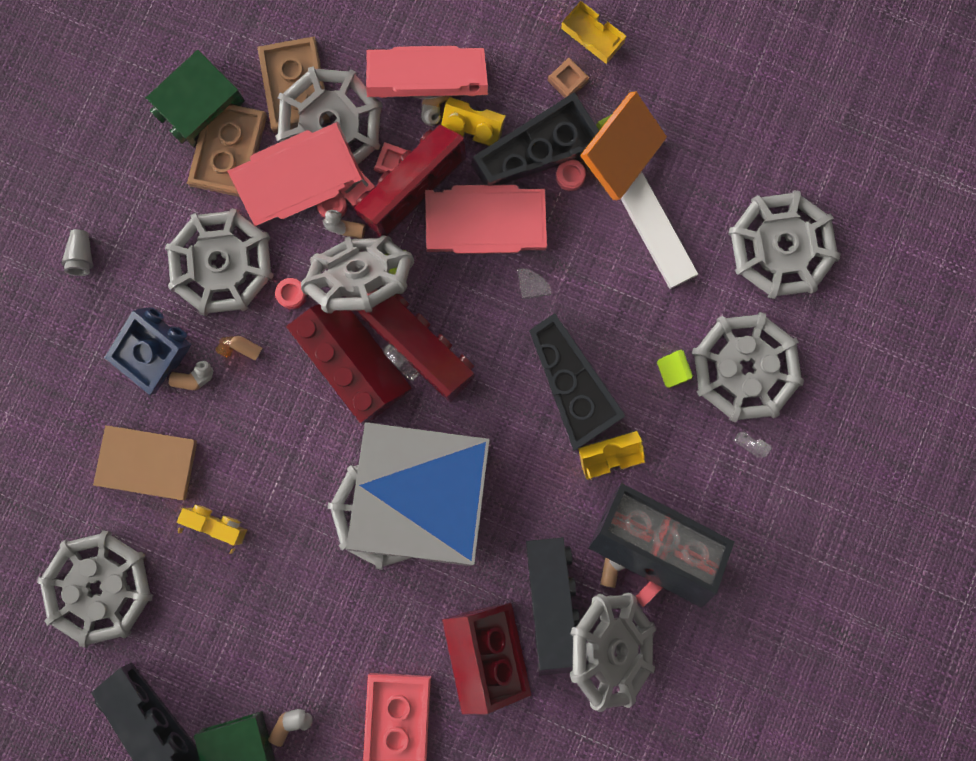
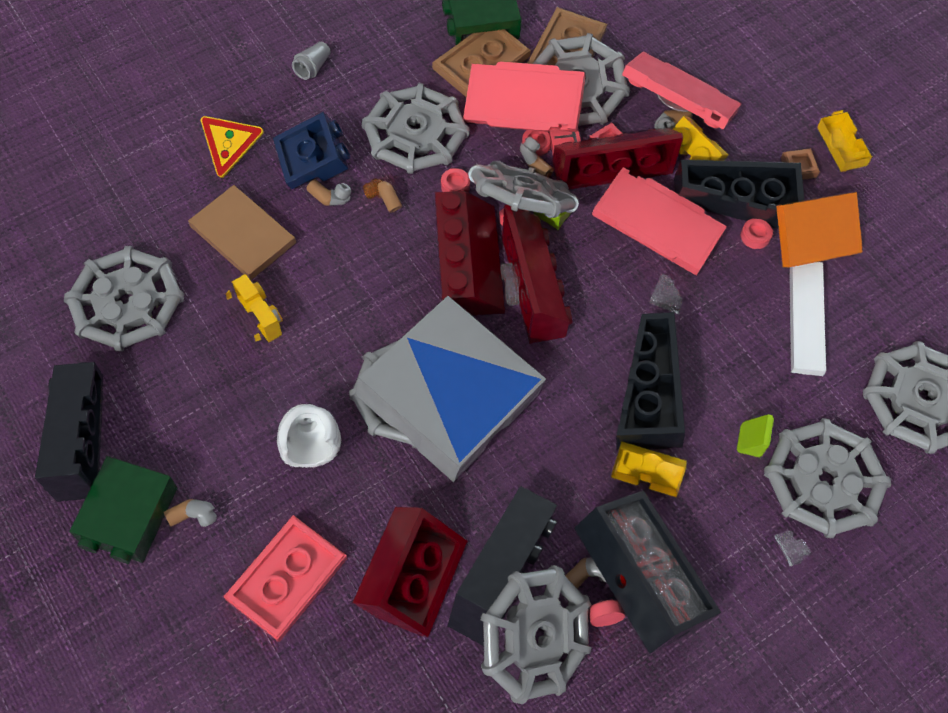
camera: 25 degrees right, 20 degrees down
(69, 388) = (228, 141): none -> piece
(336, 610) = (308, 436): none -> white piece

